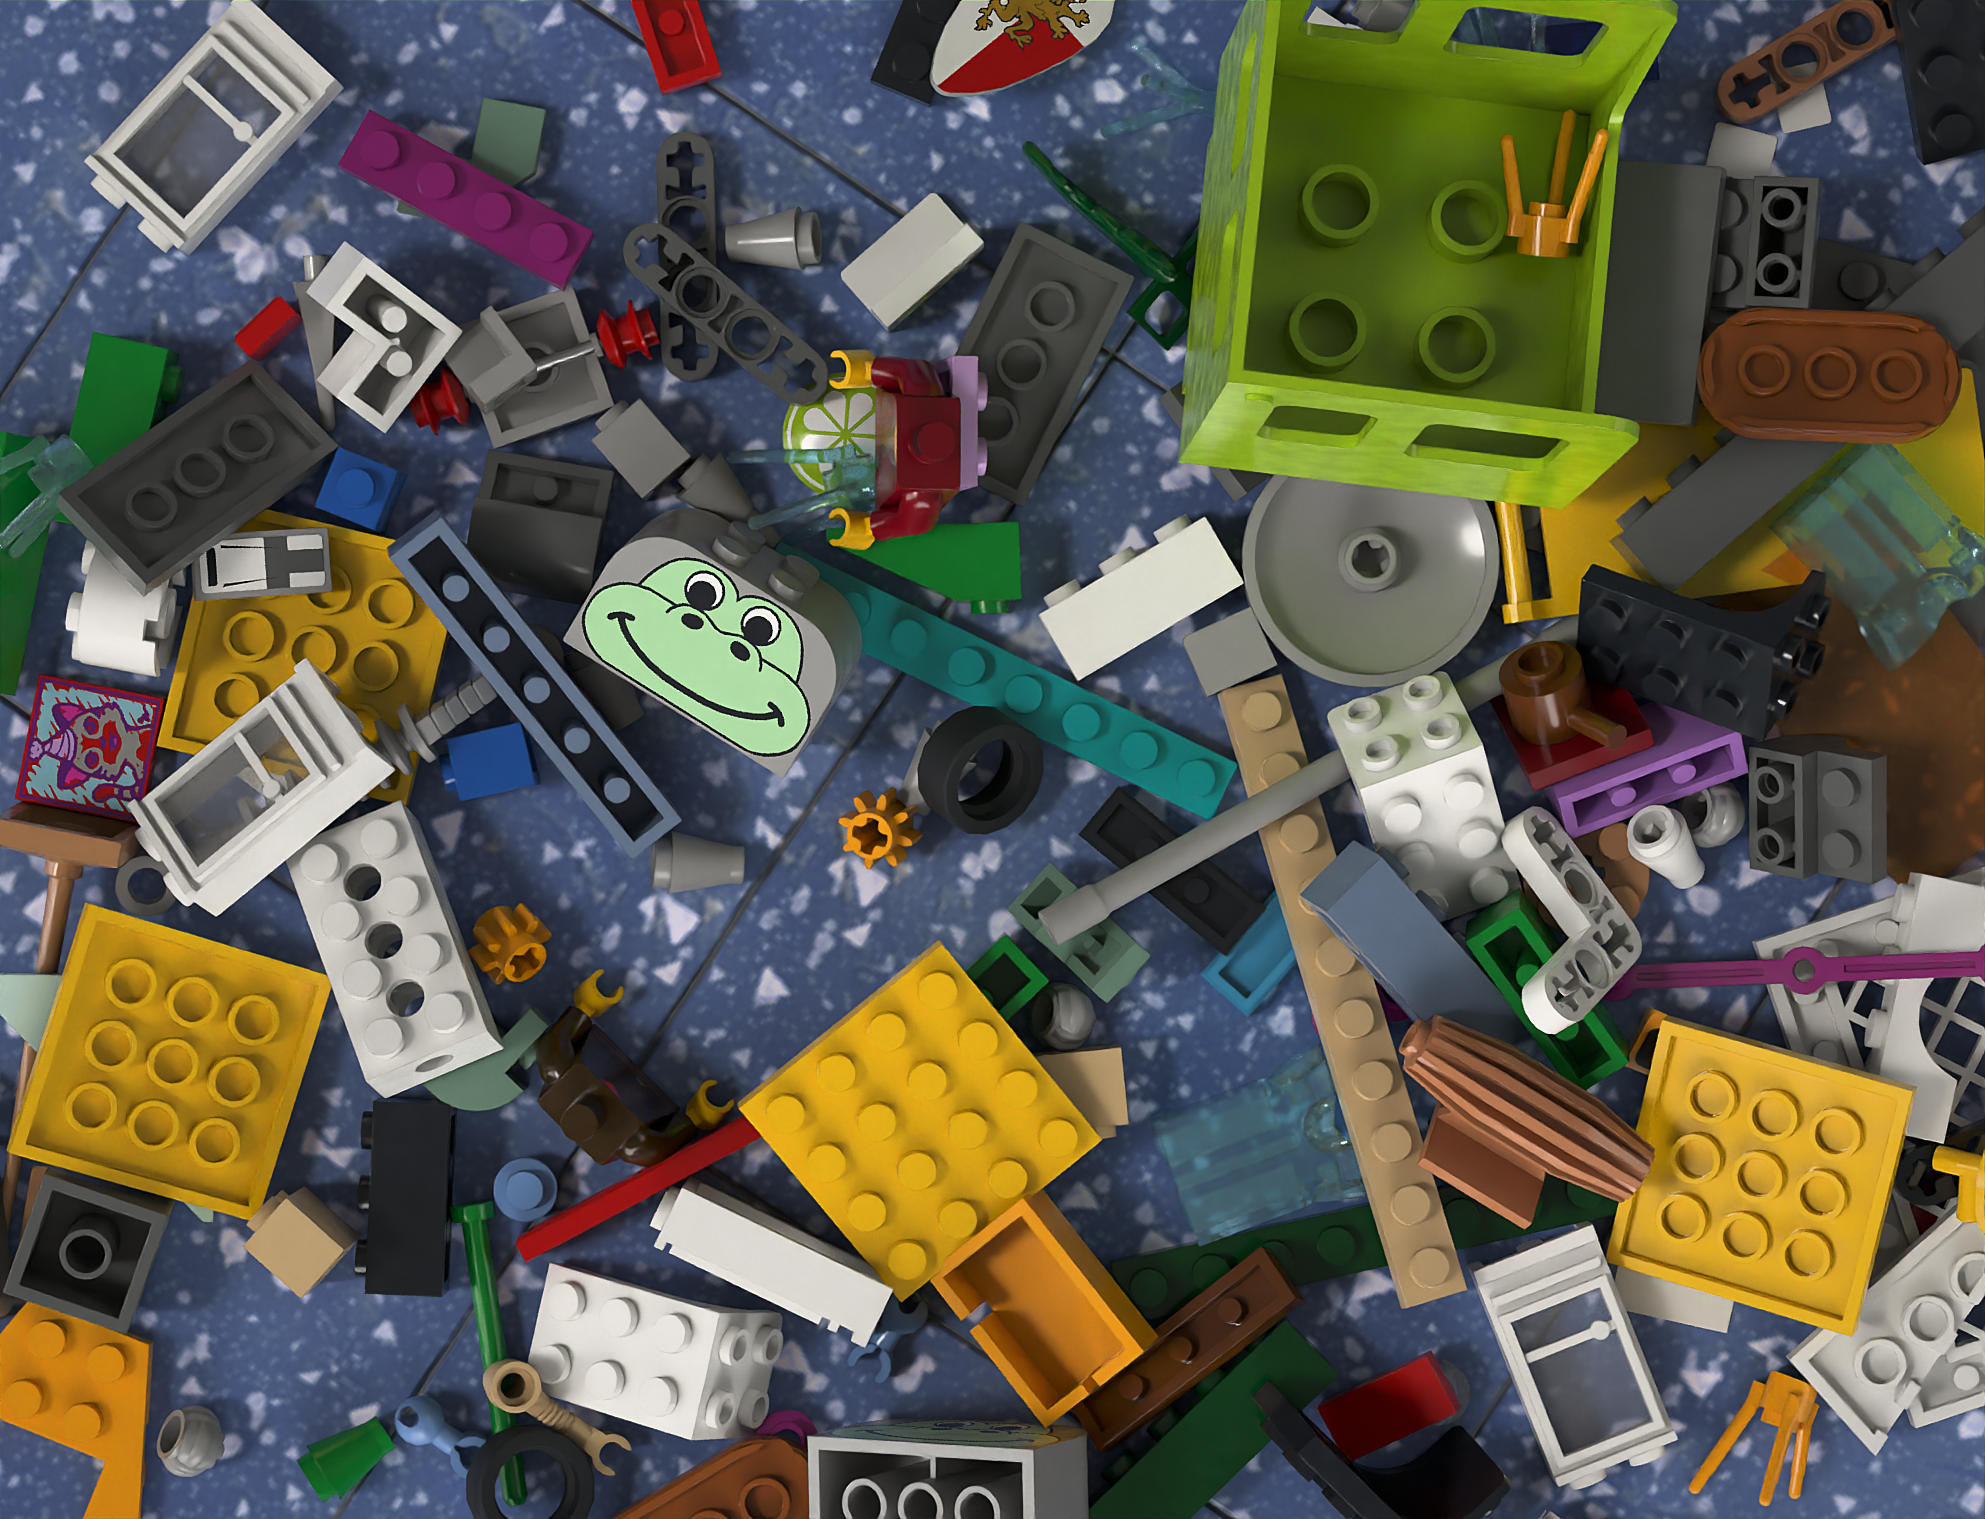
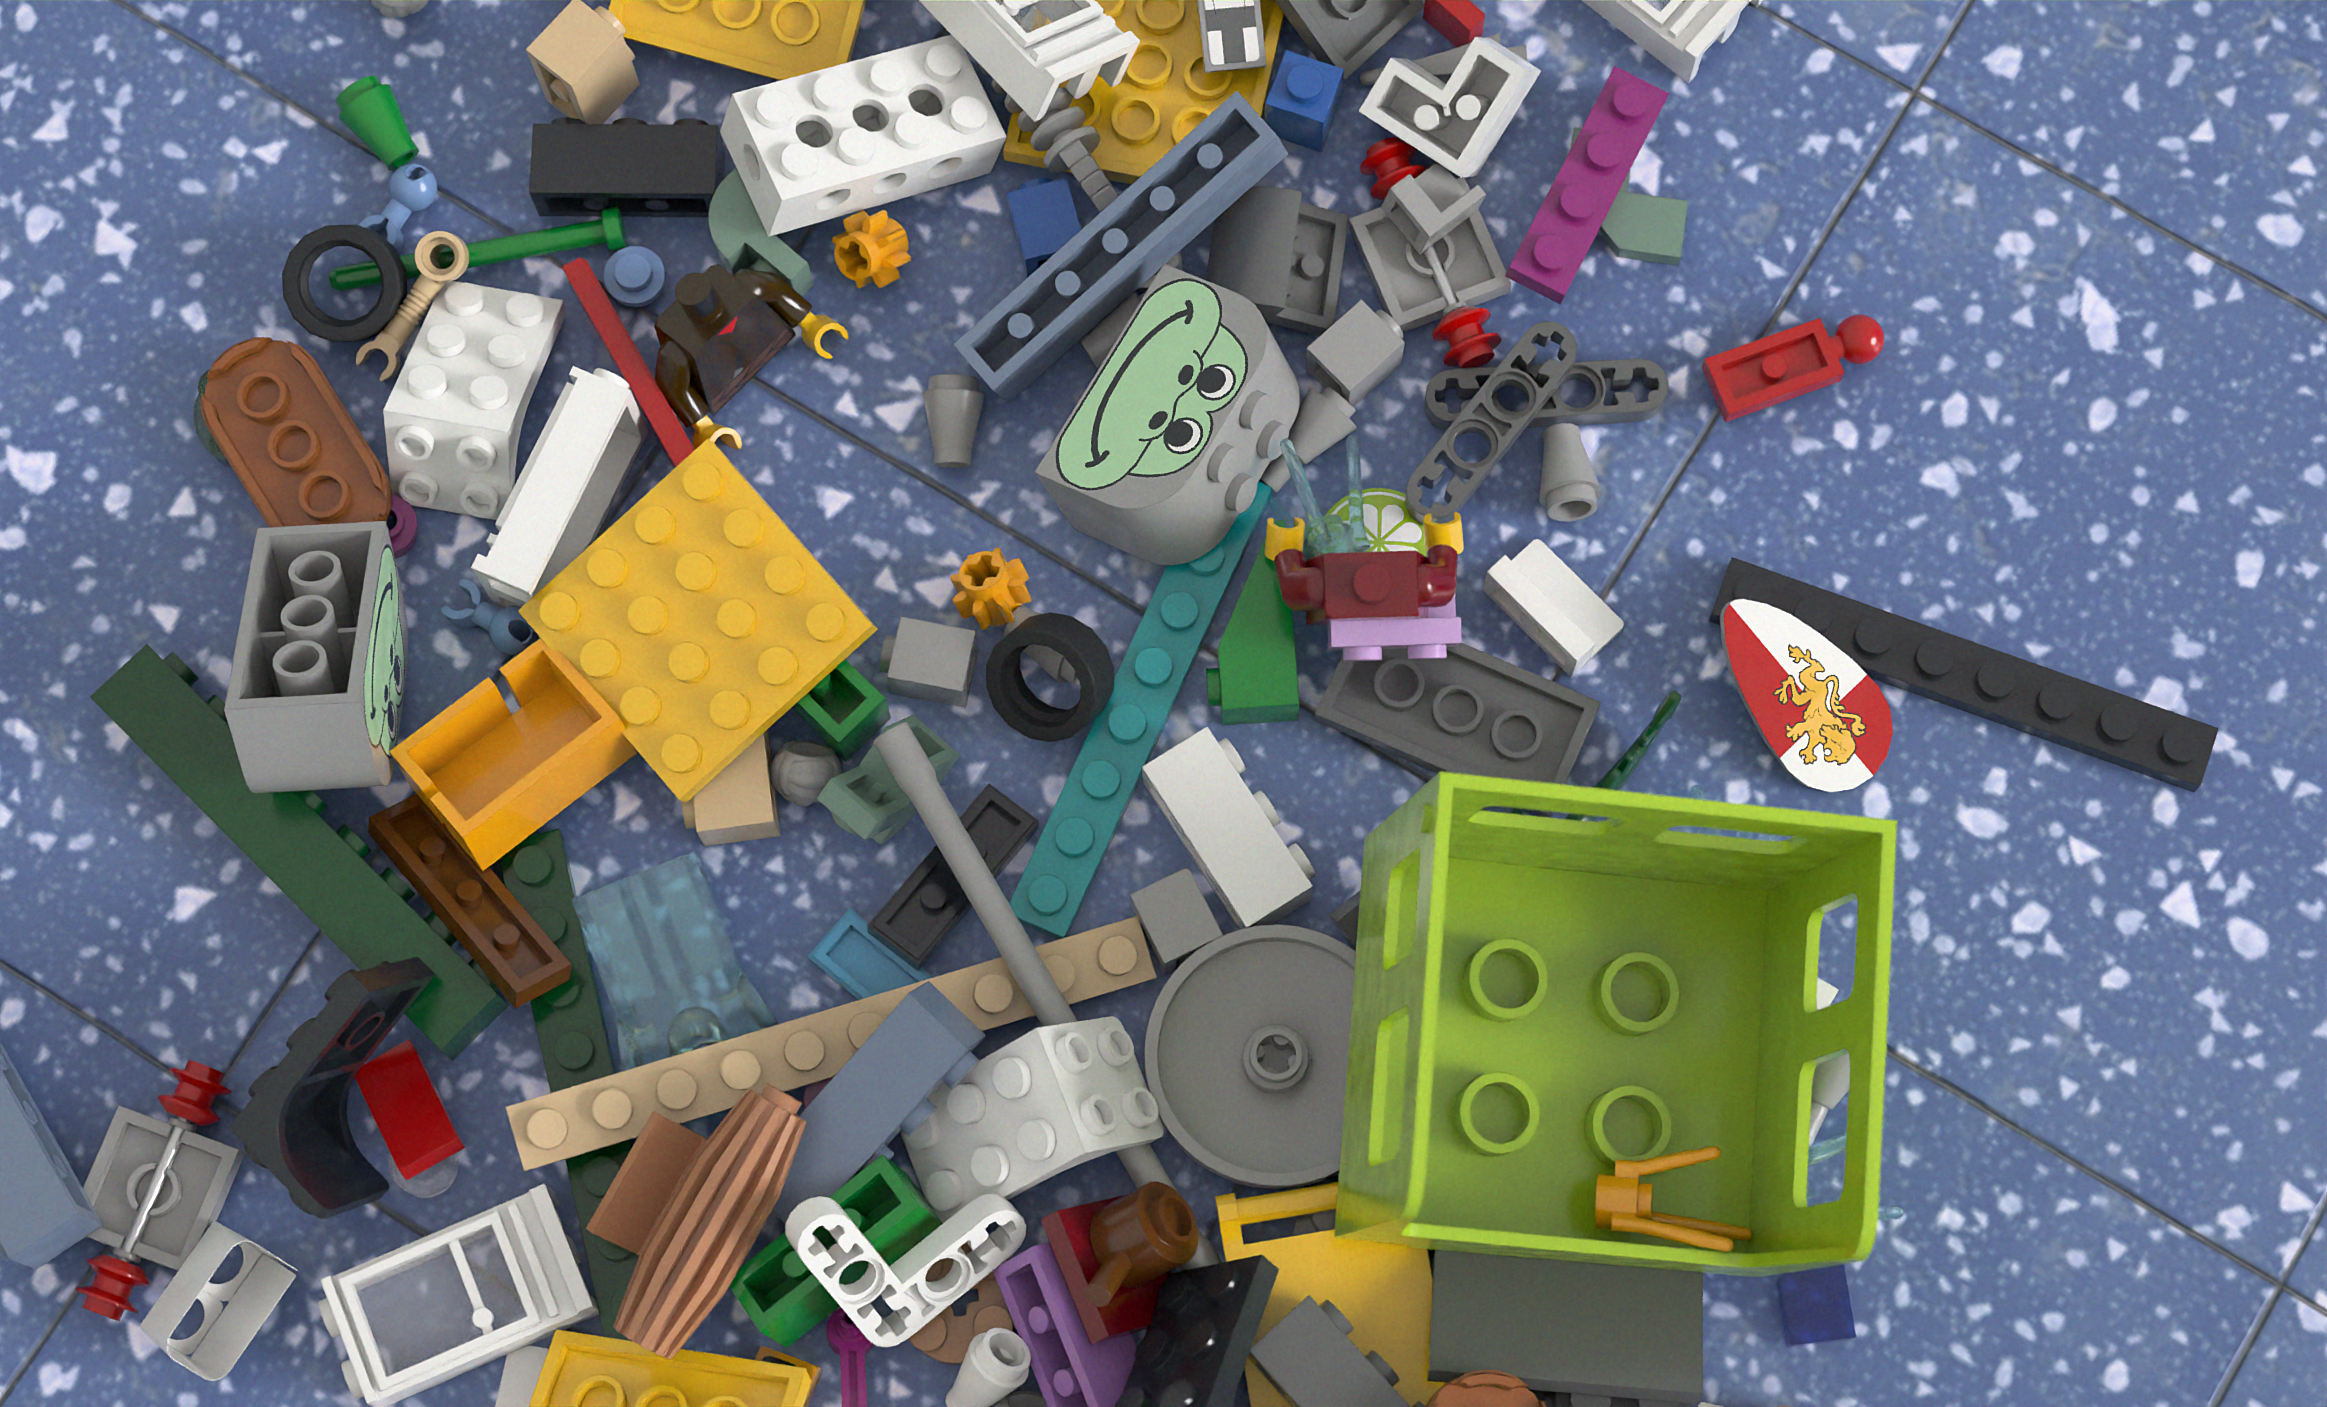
camera: 90 degrees right, 15 degrees down
(953, 891) = (930, 661): none -> light grey brick

